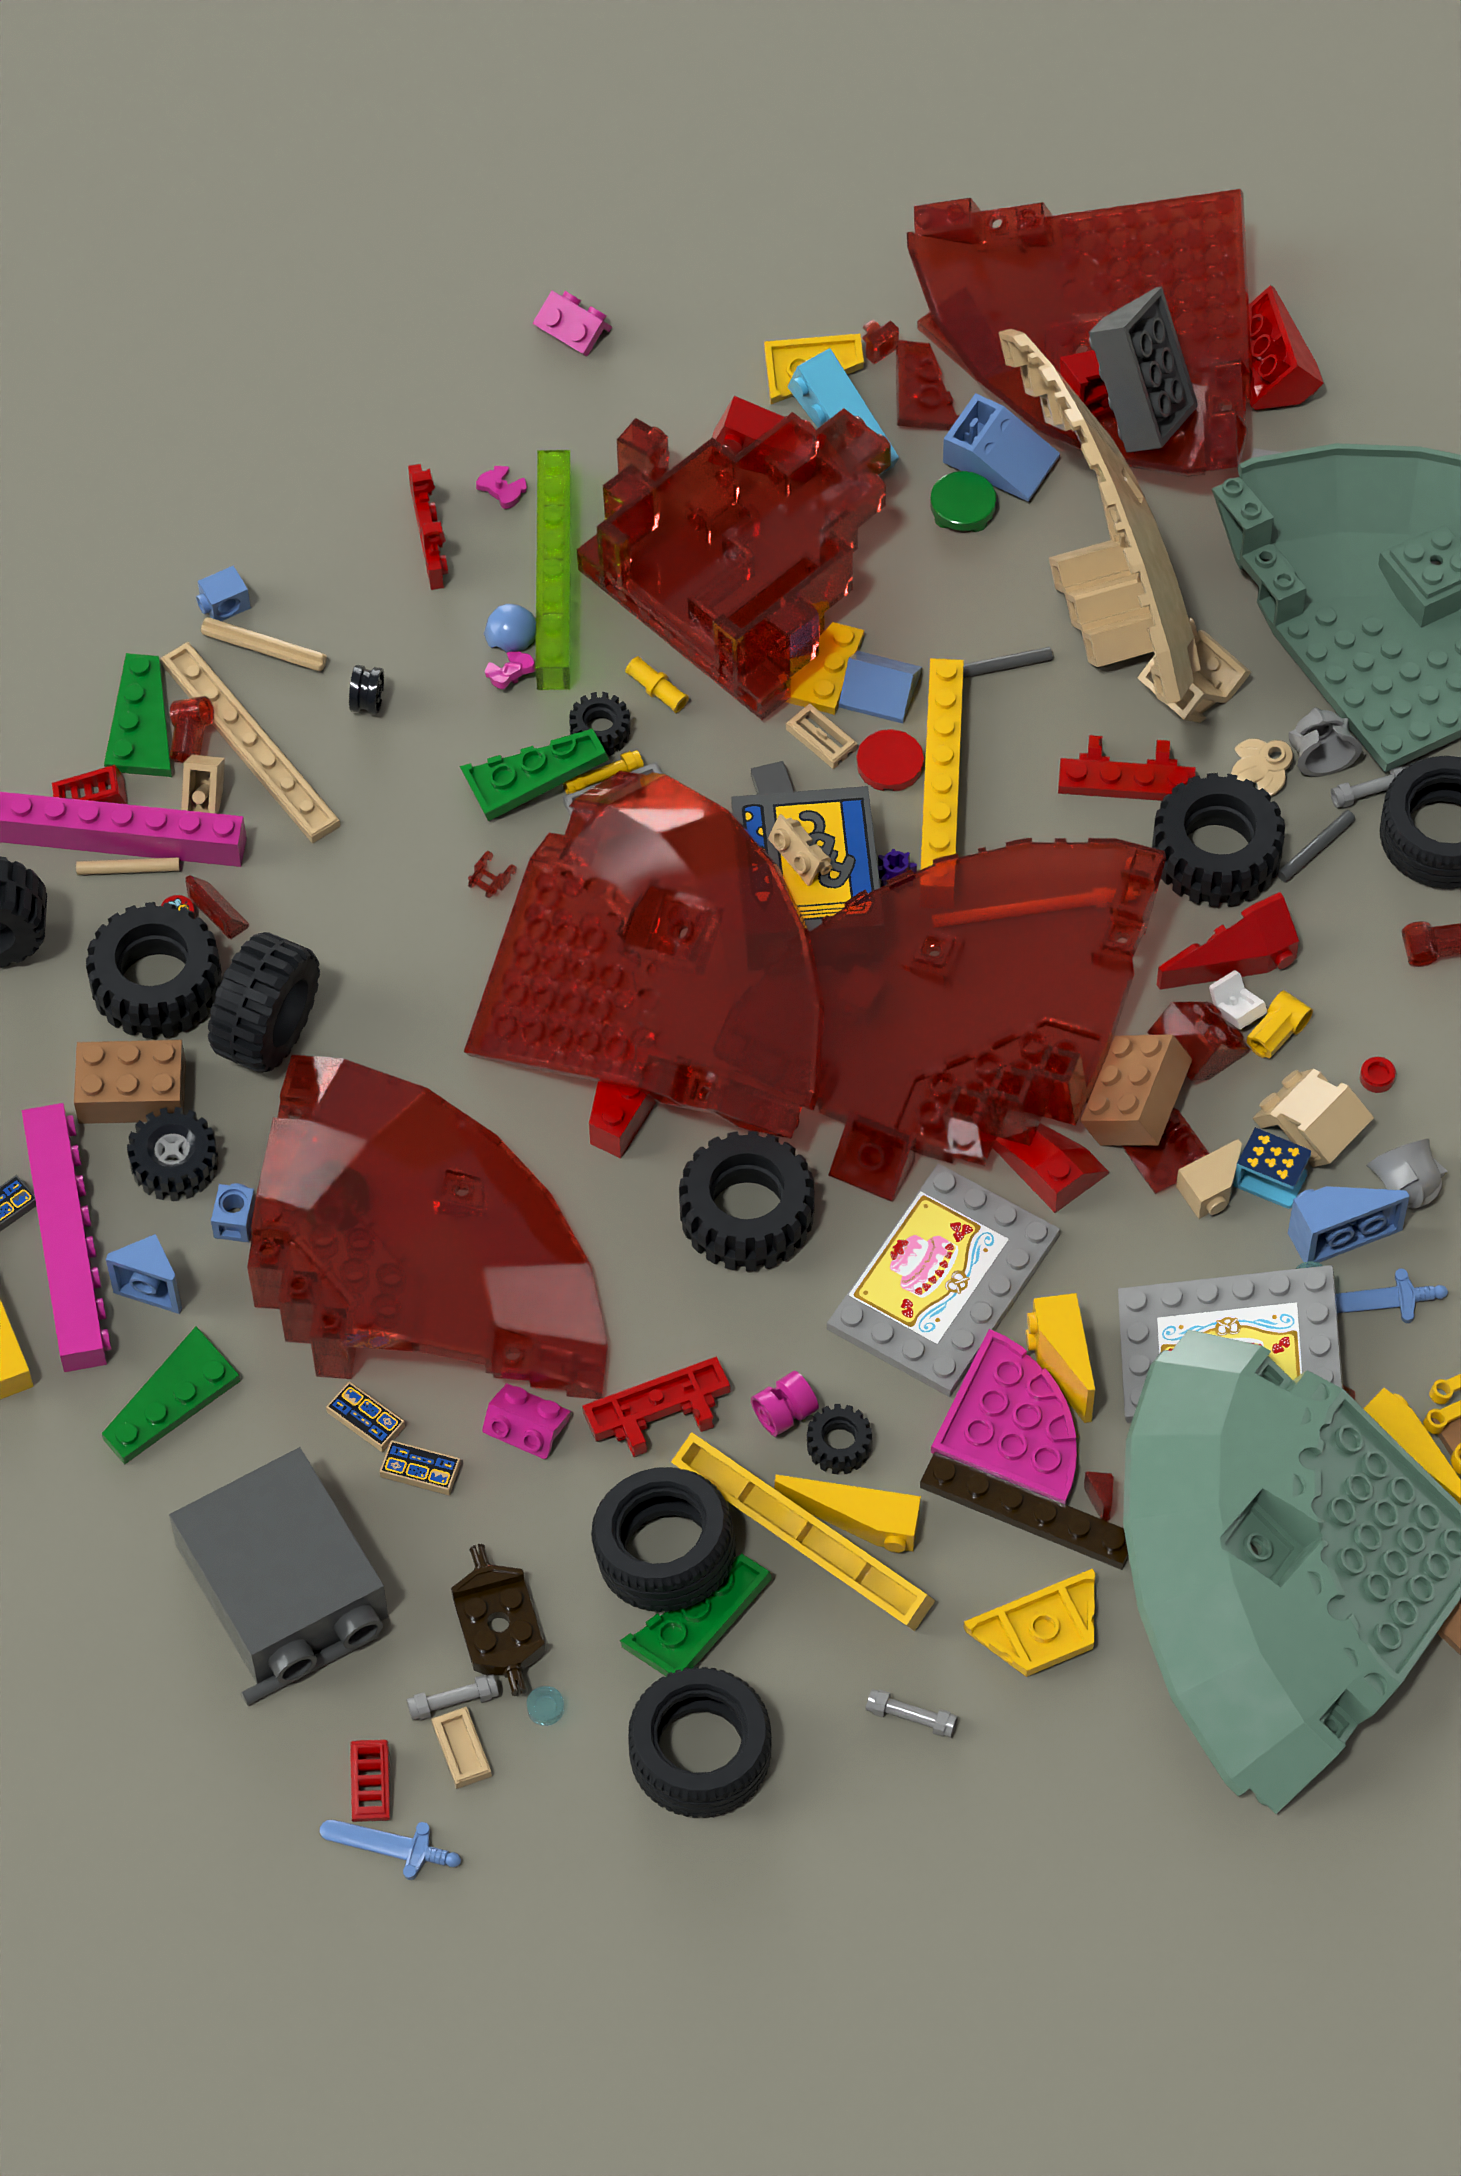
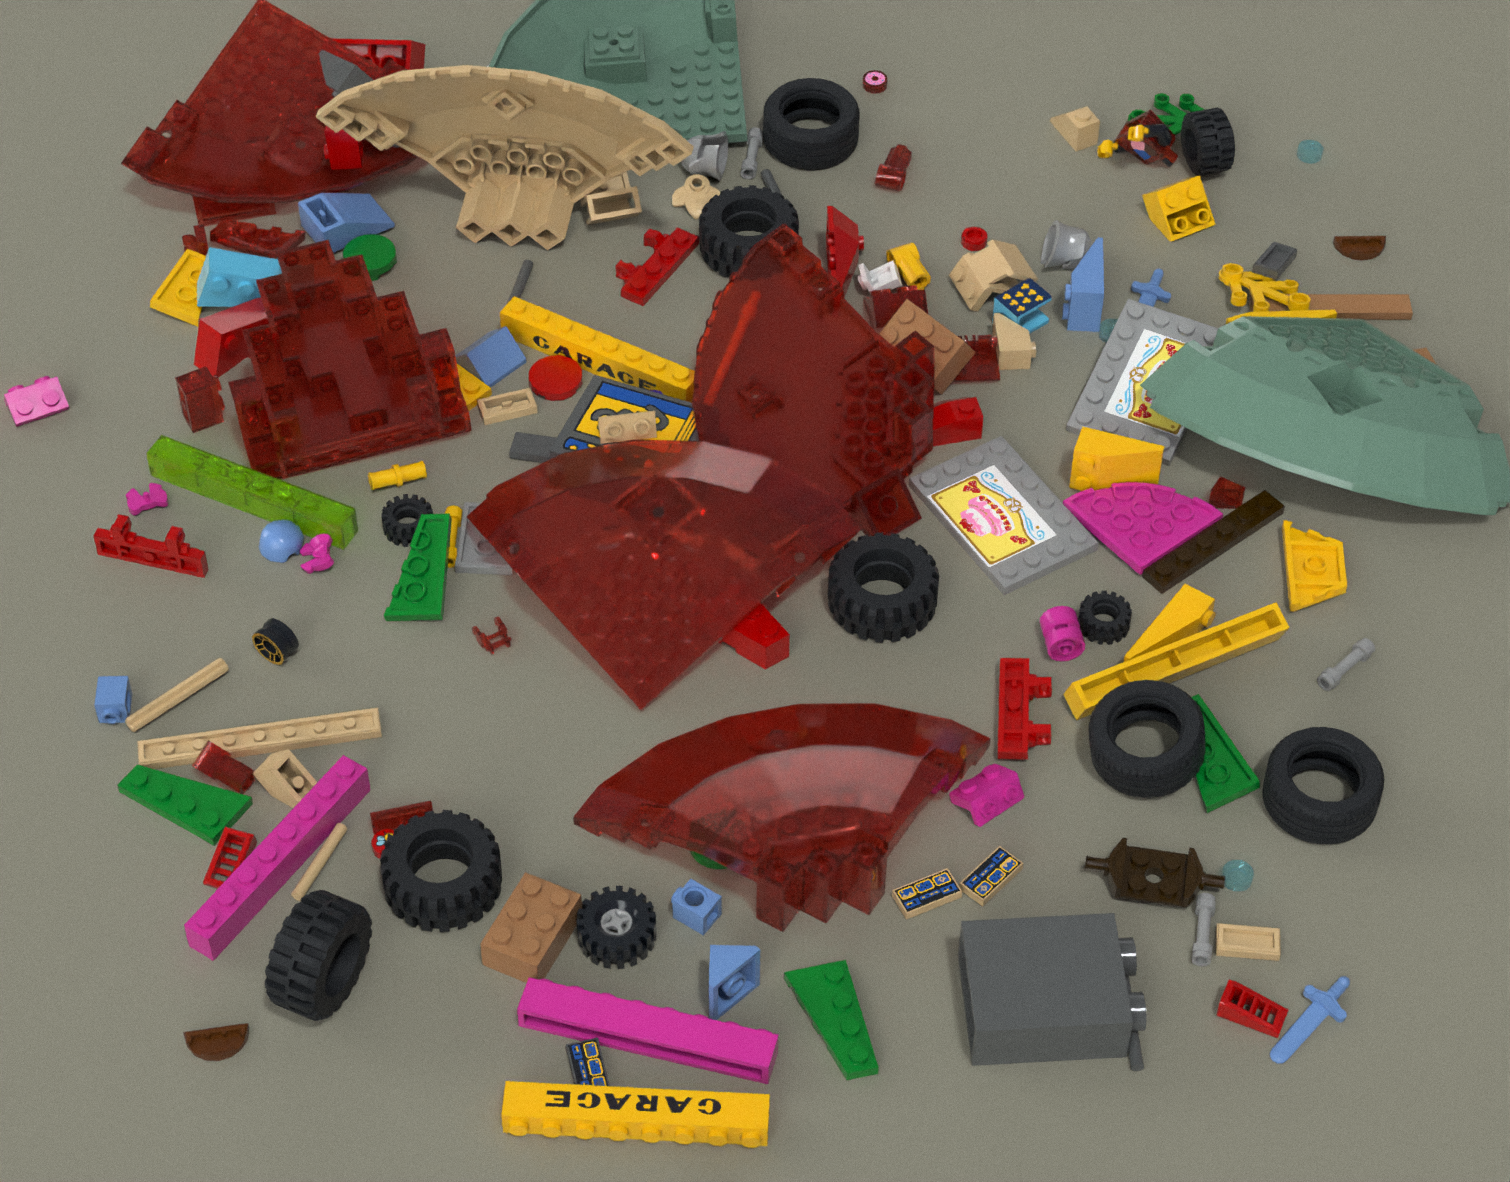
camera: 65 degrees left, 10 degrees down
(263, 1002) = (537, 795): black tyre -> none

